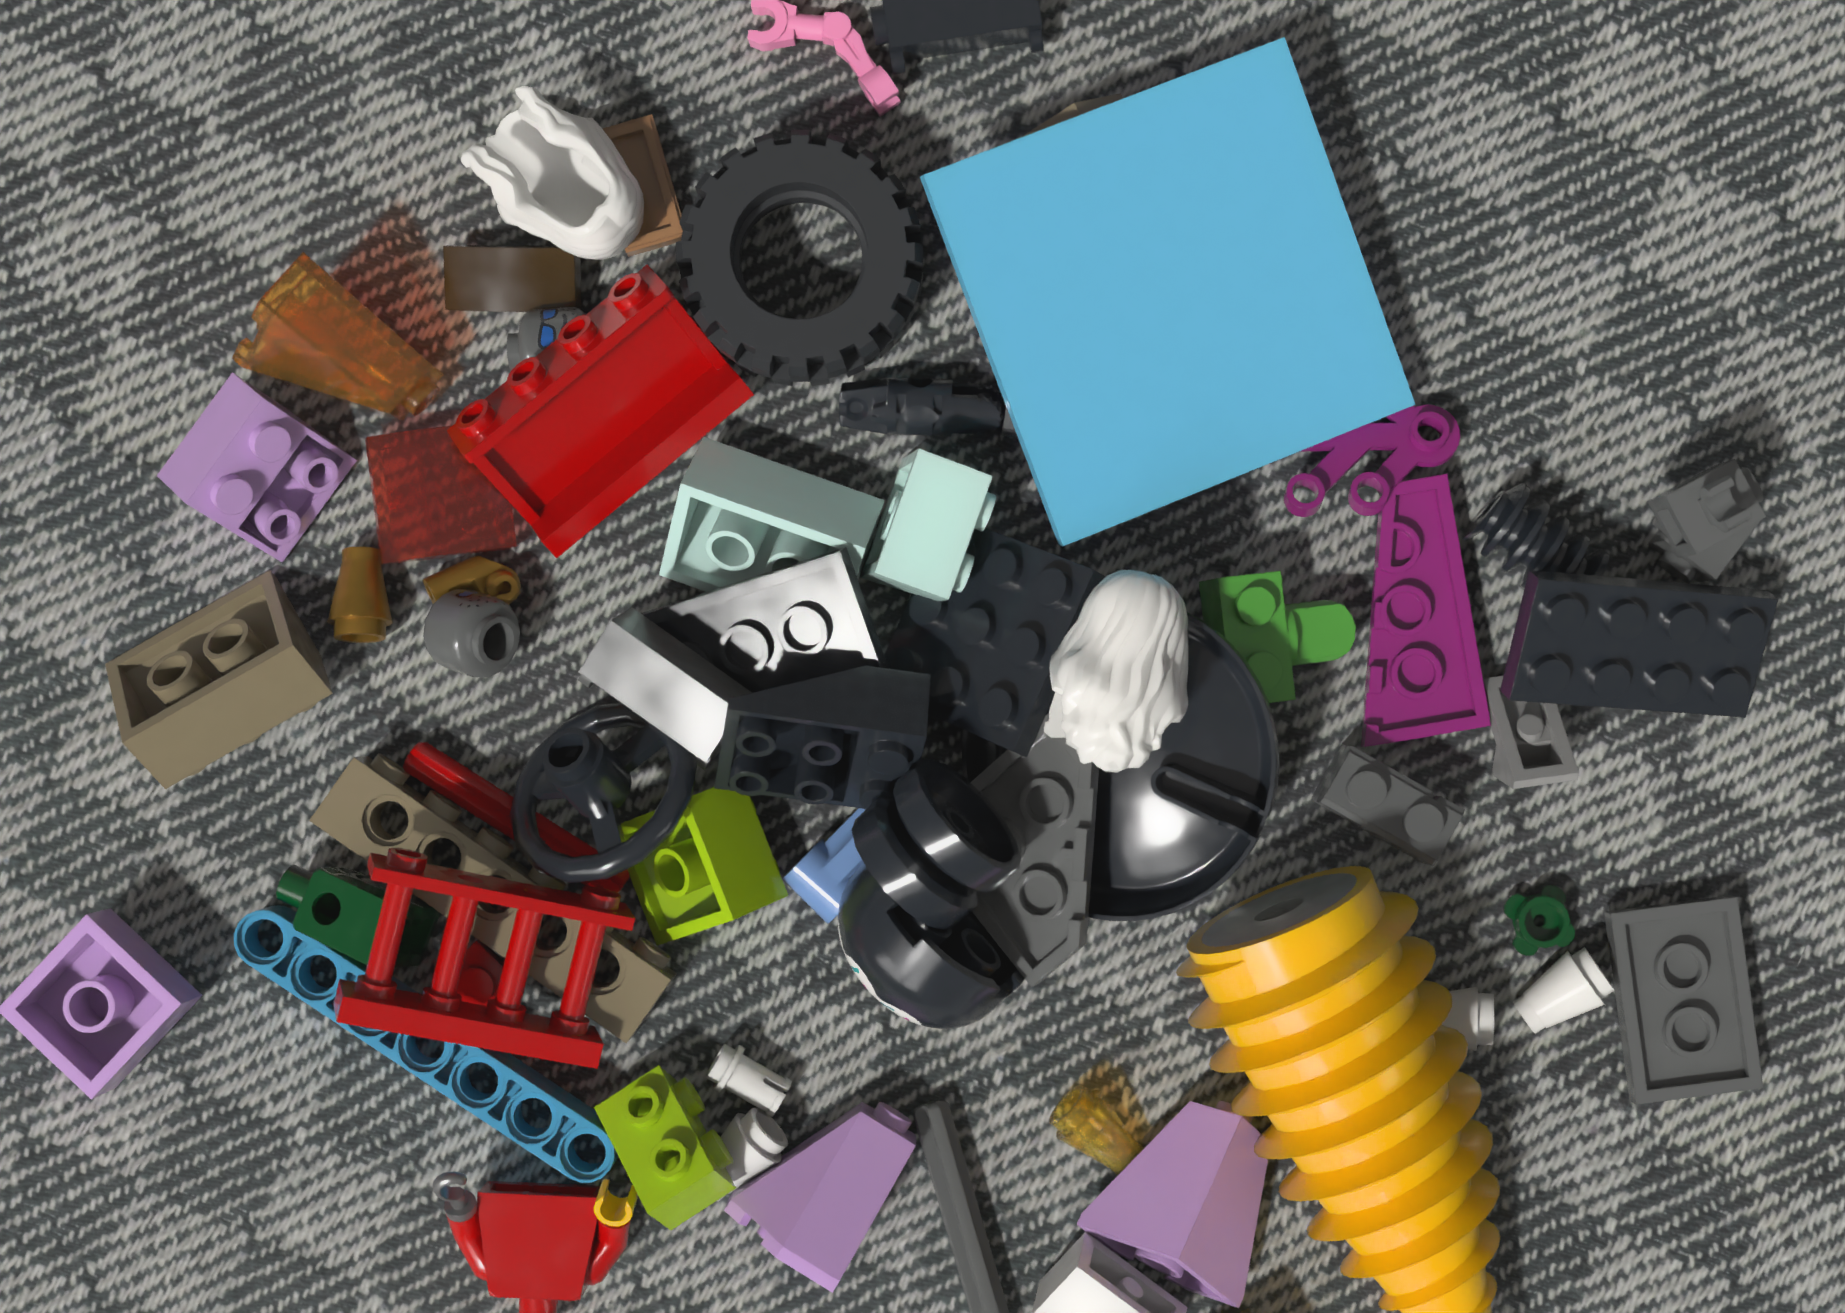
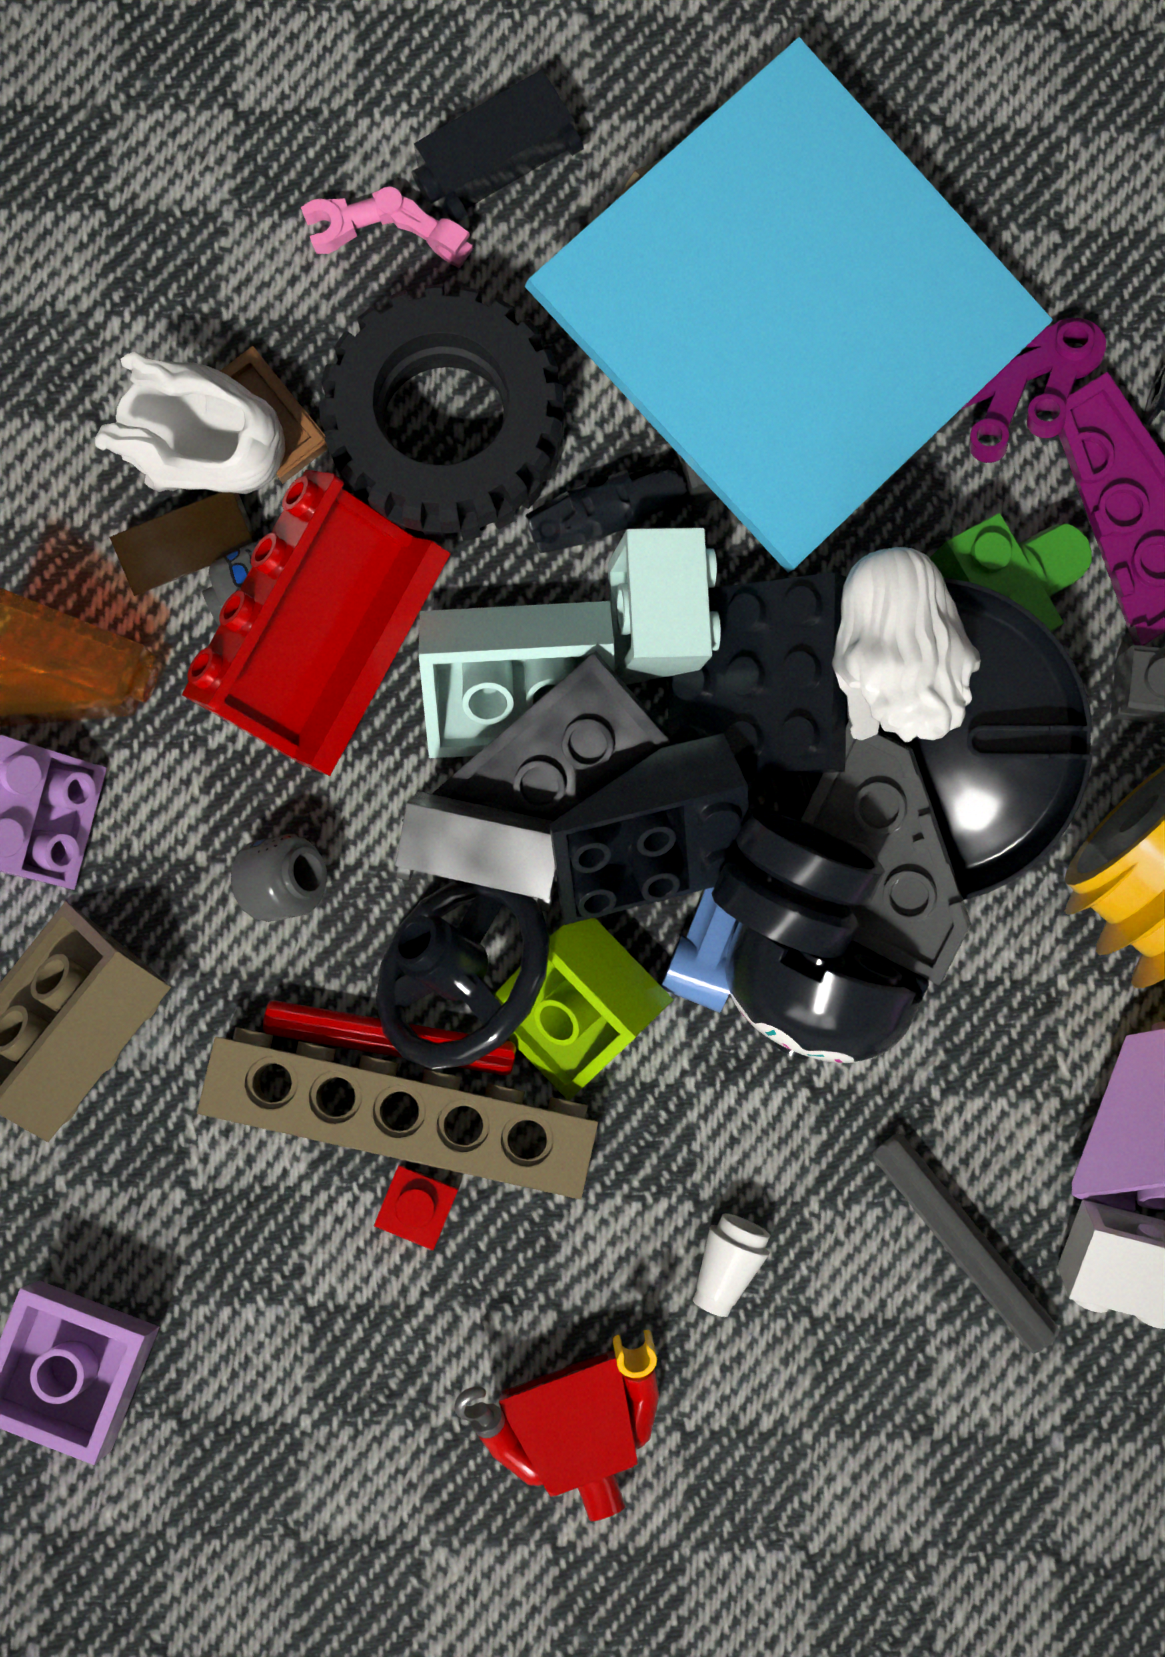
camera: 25 degrees left, 5 degrees down
(344, 909) = (278, 1184): dark green torso -> none
(360, 598) = (161, 892): pearl gold cone -> none
(433, 499) = (193, 770): clear red slope -> none
(446, 1074) = (360, 1286): dark azure beam -> none
(475, 574) = (259, 825): pearl gold arm -> none
(504, 1021) = (393, 1235): red fence -> none
(666, 1147) = (658, 1283): lime brick -> none
(748, 1079) = (706, 1189): white pin -> none
(827, 1191) = (828, 1261): lavender slope -> none
(1093, 1127) = (1046, 1100): clear yellow cone -> none

